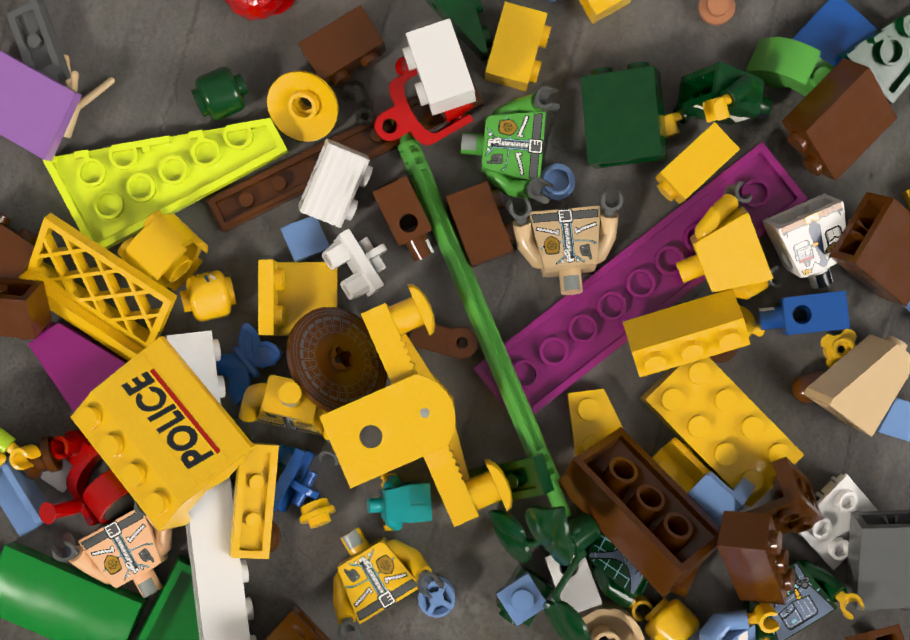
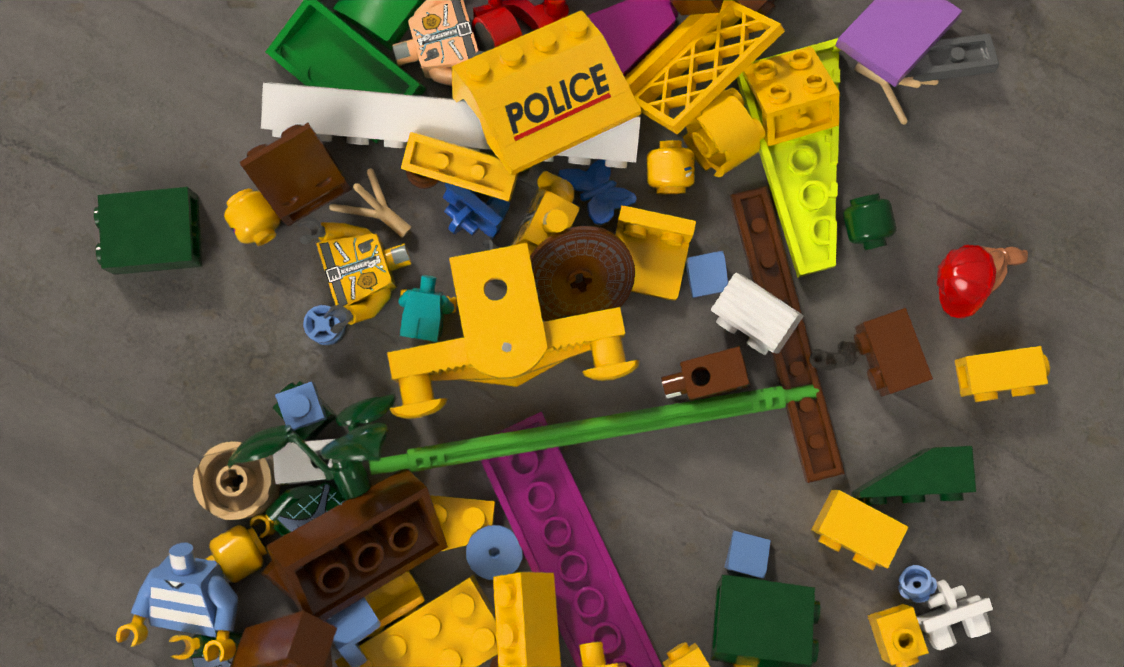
camera: 105 degrees right, 5 degrees down
(110, 191) = (793, 95): none -> yellow bracket
(290, 112) = (832, 290): yellow dish -> none
(309, 570) = (381, 208): none -> tan plant
(316, 513) = (434, 226): yellow plate -> none
(364, 277) = (686, 312): white hips -> none
(404, 118) = (827, 444): red piece -> none
(440, 67) = (852, 440): white brick -> none
(455, 342) = (570, 399): reddish brown leg -> none
(480, 223) = (684, 450): reddish brown brick -> none
(514, 145) = (758, 503): torso -> none
(525, 475) = (421, 436): dark green plate -> none
(562, 180) = (711, 540): medium blue plate -> none
(563, 145) = (748, 554): none -> medium blue slope
(566, 240) = (650, 535): tan torso -> none
(615, 383) = (493, 552): none -> medium blue piece

